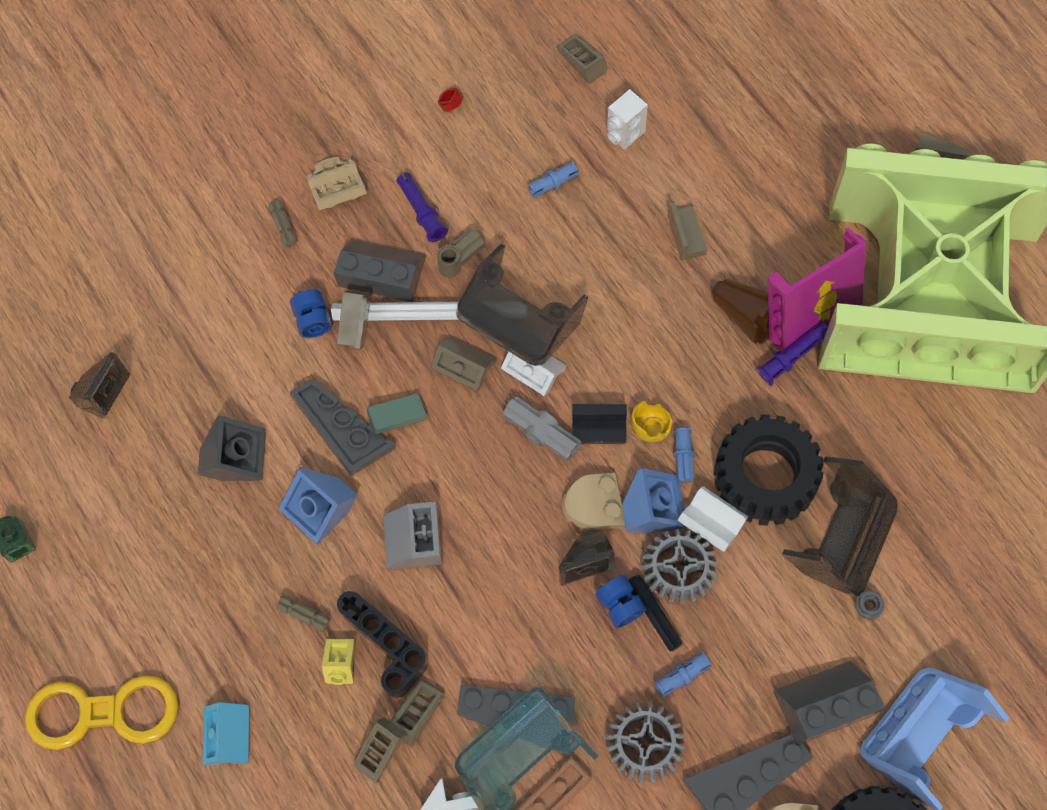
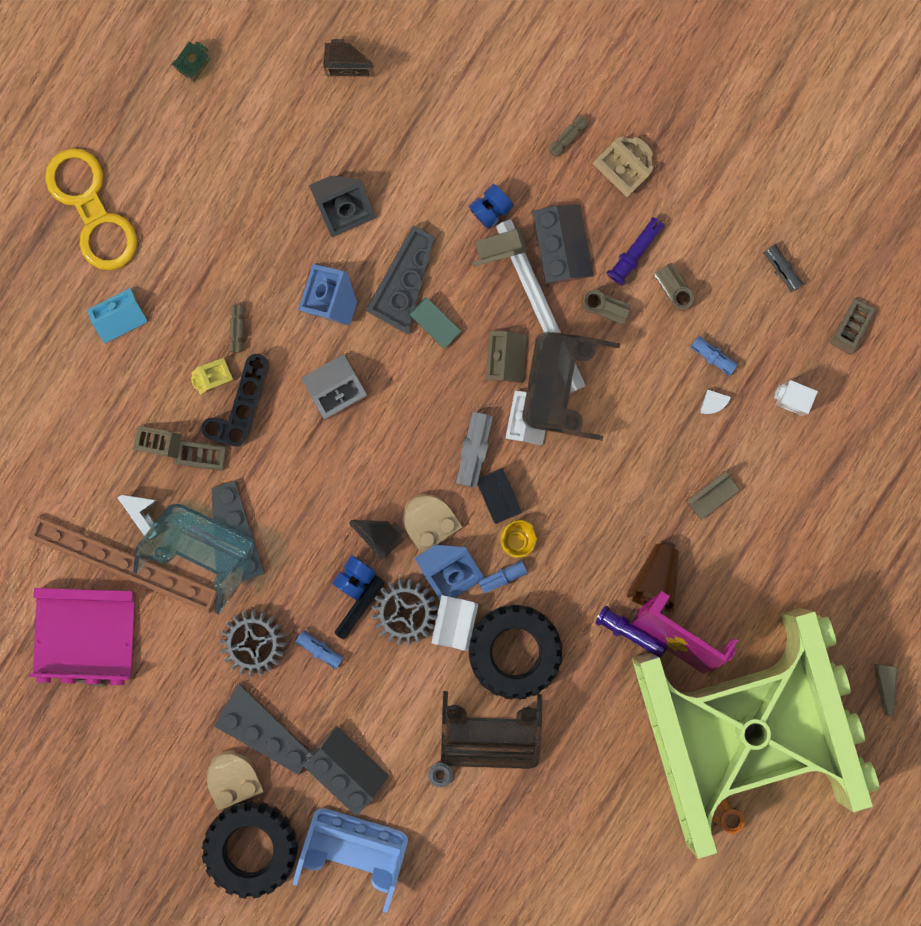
camera: 60 degrees right, 20 degrees up
(450, 99) = (755, 226): red tile -> none
(471, 185) = (674, 285): none -> dark tan piece
(517, 90) = (783, 268): none -> dark grey pin
(597, 197) = (713, 402): none -> white tile

